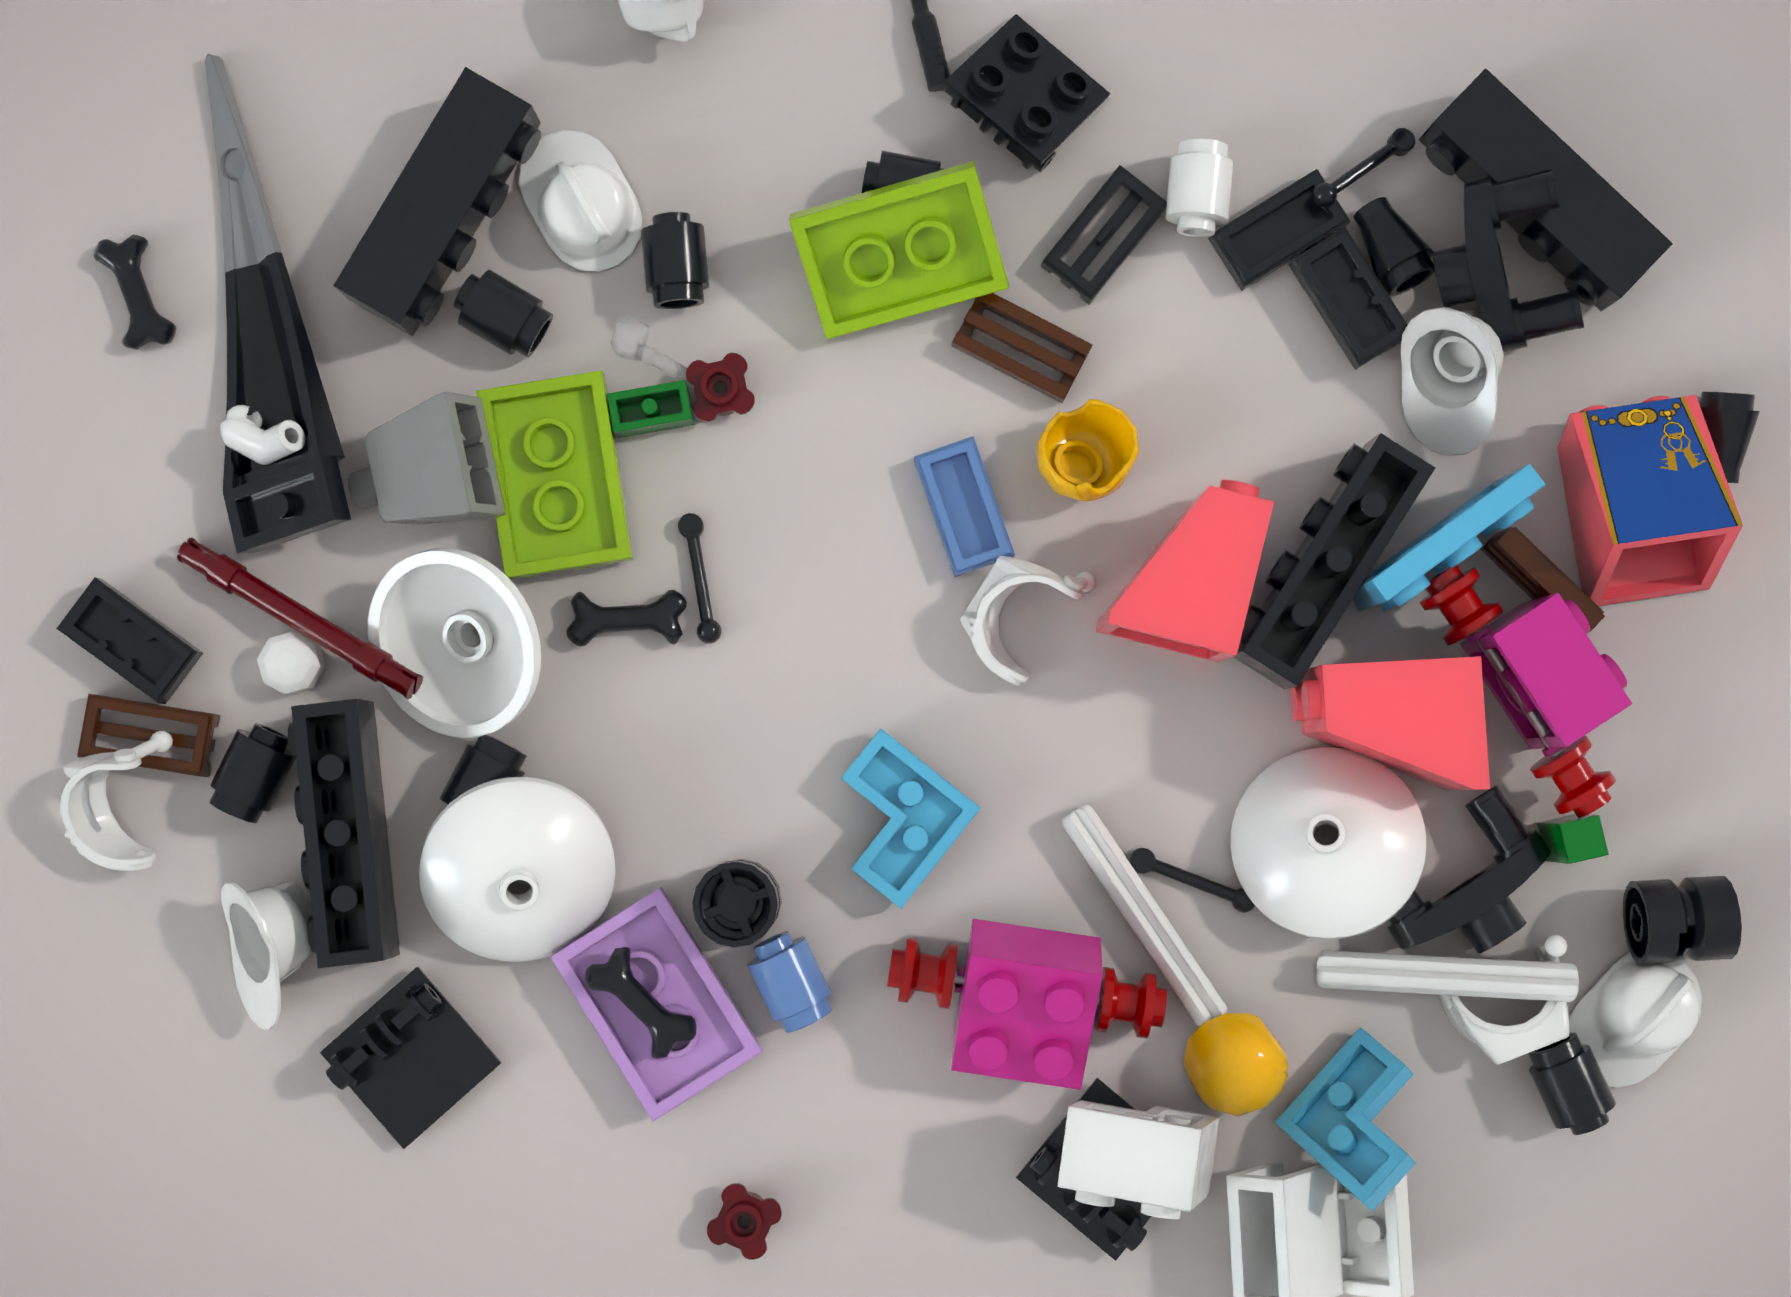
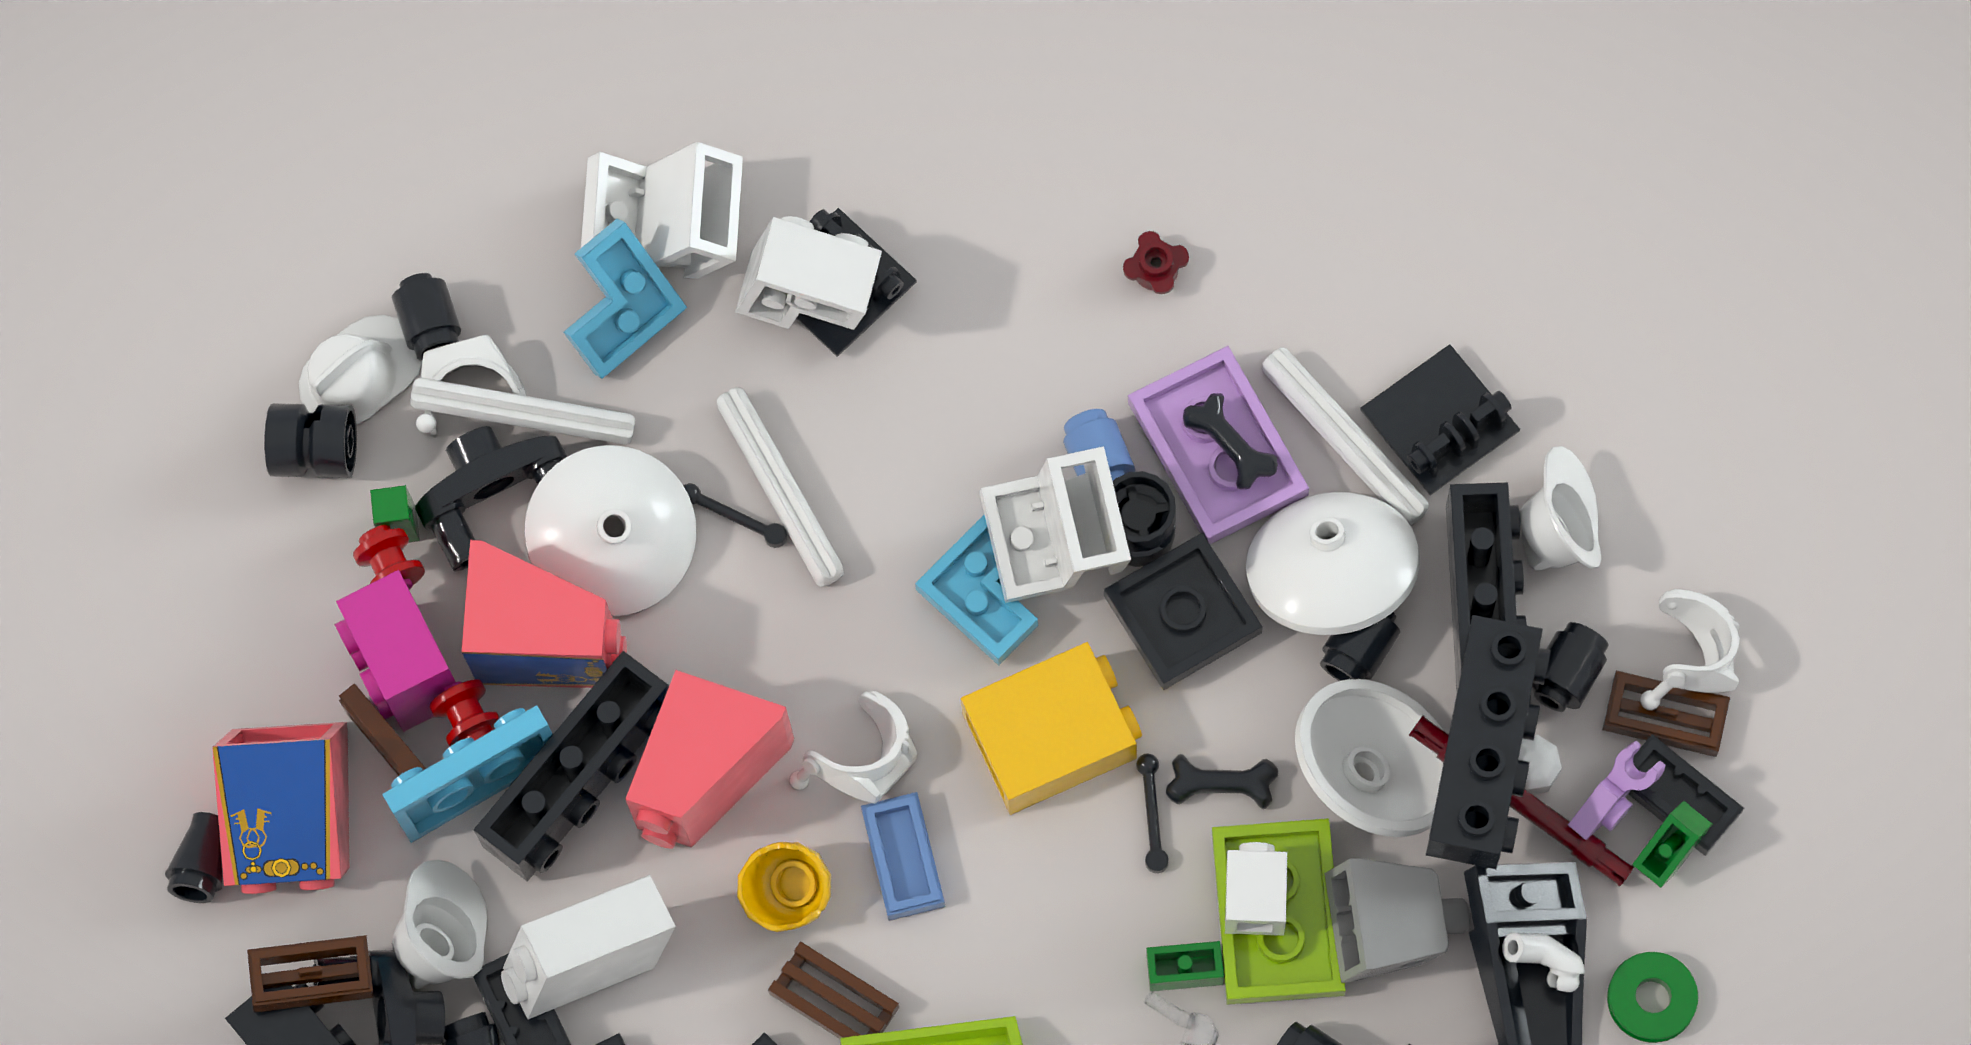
camera: 165 degrees left, 15 degrees down
(124, 416) = (1672, 976): none -> green piece
(131, 579) = (1672, 844): none -> green piece
(200, 621) = (1608, 801): none -> lavender plate
(321, 648) = (1486, 741): none -> black brick
(516, 1028) = (1344, 435): none -> white axle
(574, 479) = (1256, 890): none -> white brick
(681, 804) = (1183, 611): none -> black plate
(736, 396) = (1108, 994): dark red plate -> none
(814, 656) = (1051, 727): none -> yellow brick
(826, 872) = (1055, 528): none -> white piece
(1027, 1000) = (892, 417): dark pink brick -> none
(1235, 1064) = (715, 354): yellow hair -> none
(1293, 348) = (587, 947): none -> white brick
(1534, 309) = (311, 995): none -> reddish brown tile

